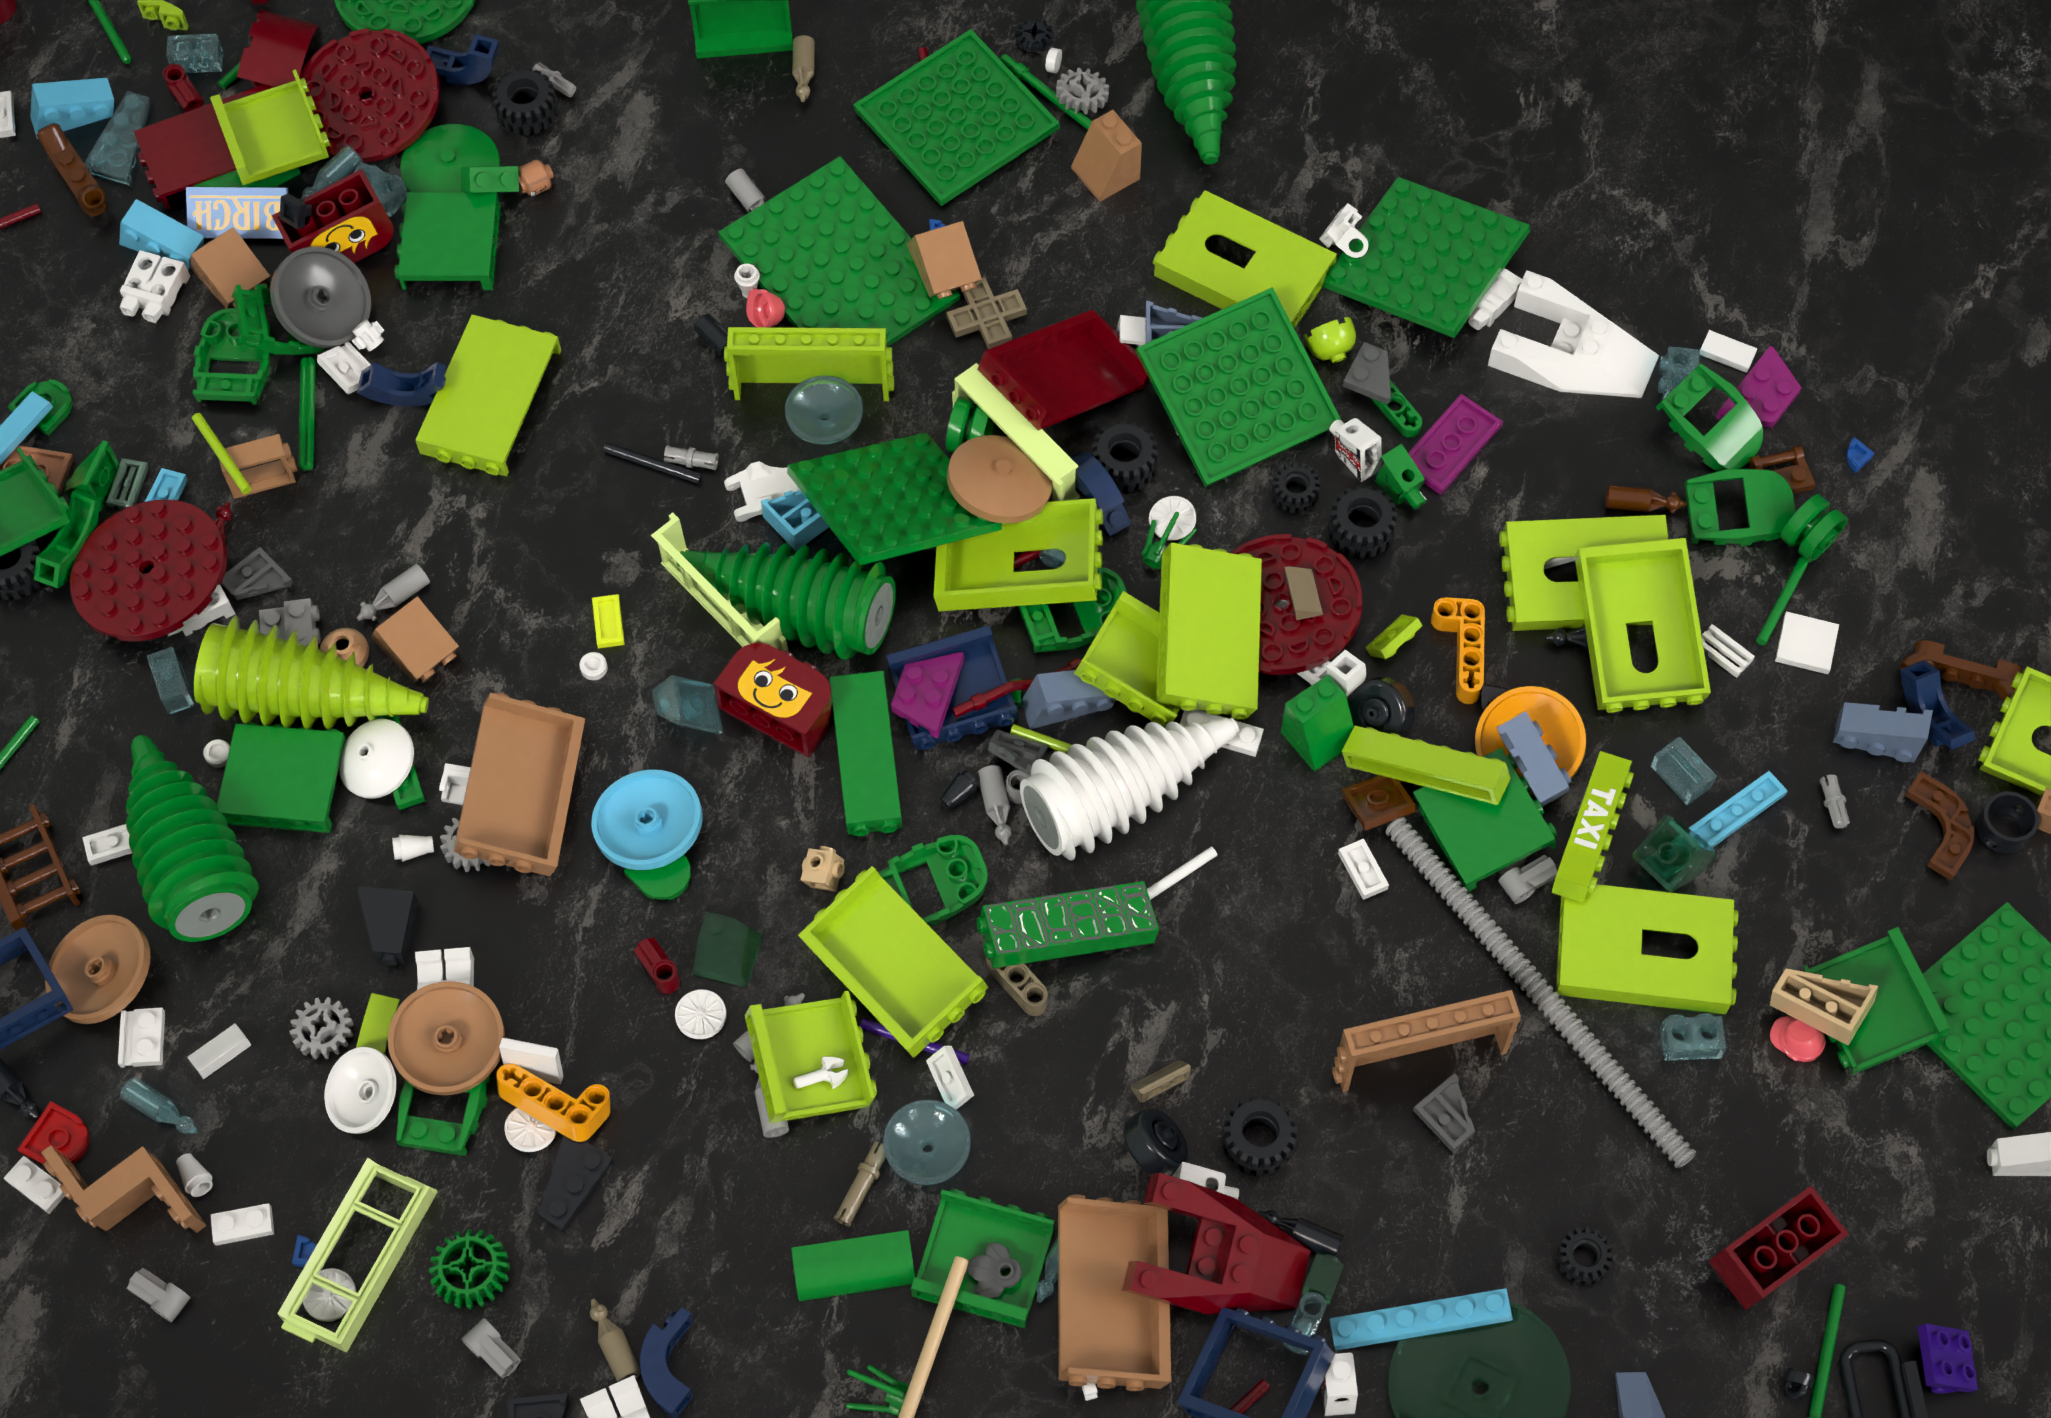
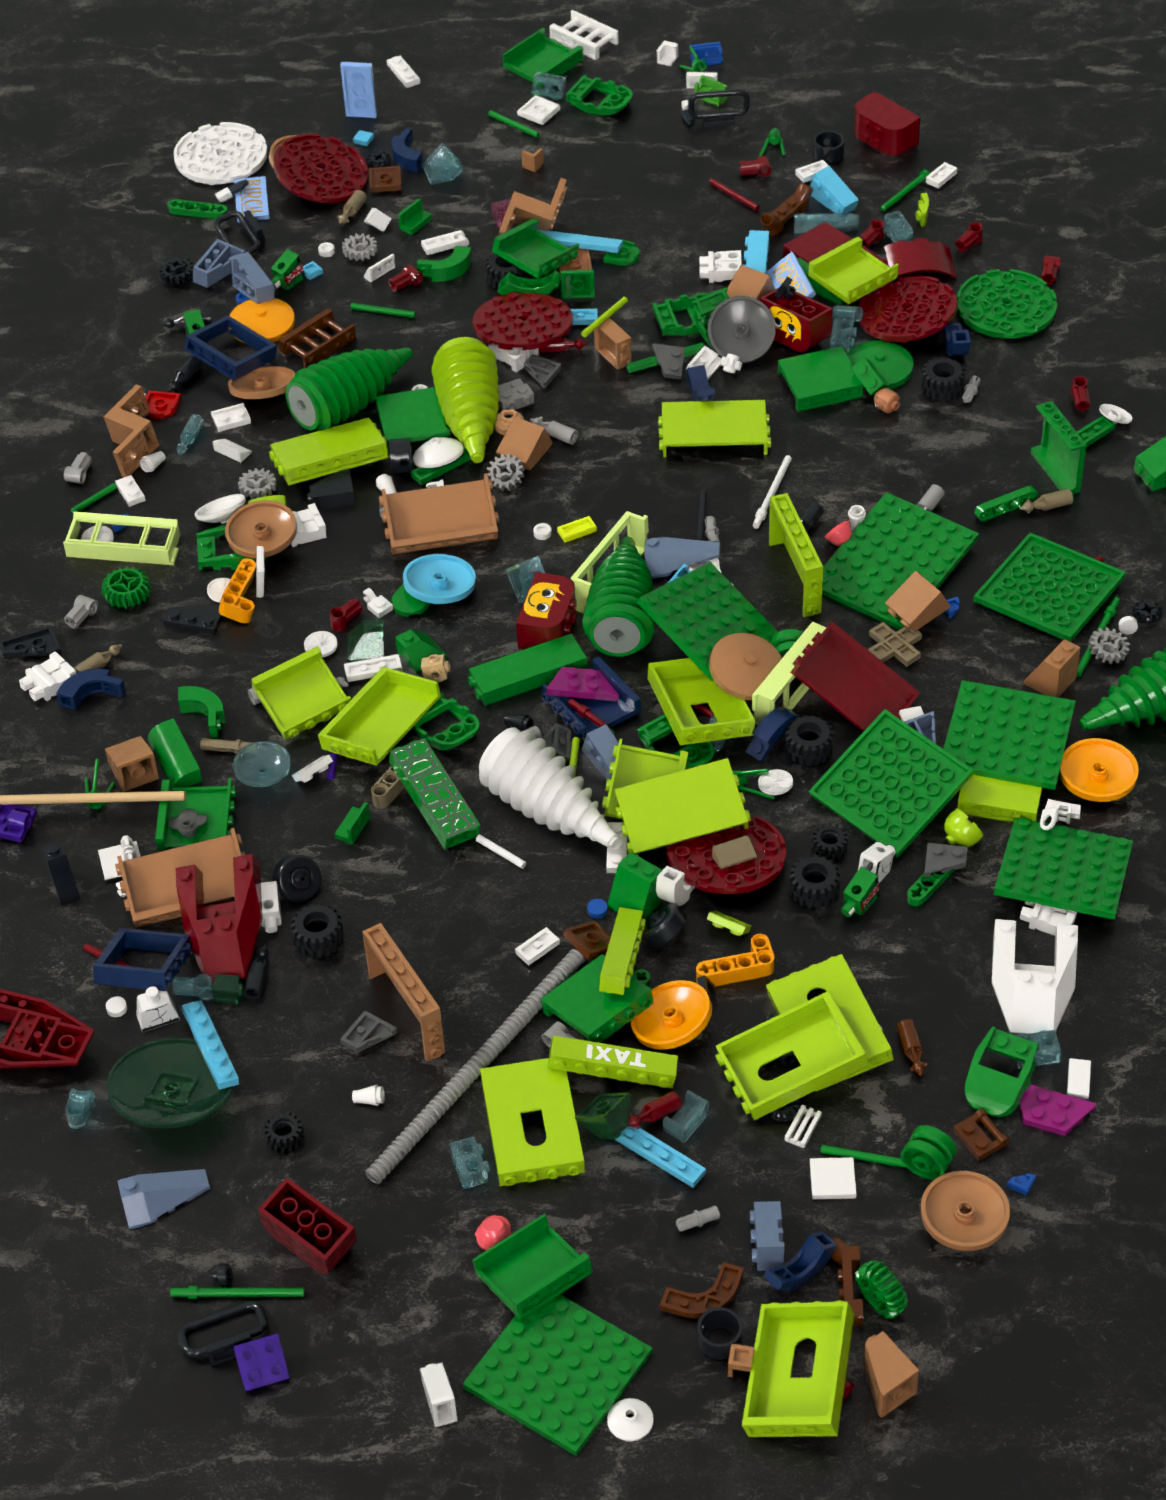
camera: 75 degrees right, 15 degrees down
(136, 488) = (584, 301): sand green tile -> none
(234, 1284) = (94, 498): none -> green bar
(307, 906) = (328, 451): none -> lime panel
(322, 407) = (669, 359): none -> dark grey wing
(366, 808) = (400, 455): none -> black piece
(455, 668) = (506, 465): none -> light grey gear
(653, 917) = (377, 605): none -> white plate
(678, 389) = (762, 512): none -> white bar
(729, 507) = (669, 554): none -> sand blue wedge
(770, 1194) = (205, 702): none -> green arch
(771, 883) = (416, 645): none -> green slope
(781, 953) = (368, 668): none -> white plate
(787, 112) = (988, 509): none -> green beam
(820, 399) = (772, 579): clear light blue dish -> none
(823, 1074) = (293, 705): white bar -> none
(848, 1327) = (132, 763): none -> medium nougat slope
(1030, 1383) = (108, 856): none -> white hinge
(1071, 1047) = (353, 824): none -> green panel
(1161, 1080) = (343, 875): dark tan slope -> none
(1201, 237) = (1010, 733): none -> green plate
(1285, 170) = (1099, 770): none -> light orange dish
(1318, 782) = (597, 908): none -> blue tile
(1453, 442) = (911, 924): magenta tile -> none
(1534, 758) = (651, 1009): sand blue wedge -> none
(1554, 1131) = (371, 1095): none -> white cone
(1667, 796) = (656, 1110): none -> dark red wheel
(1767, 505) = (946, 1115): green slope -> none
(1824, 1003) = (508, 1222): tan wedge -> none
(1896, 519) = (965, 1210): none -> medium nougat dish
(1990, 634) = (881, 1289): none -> green gear

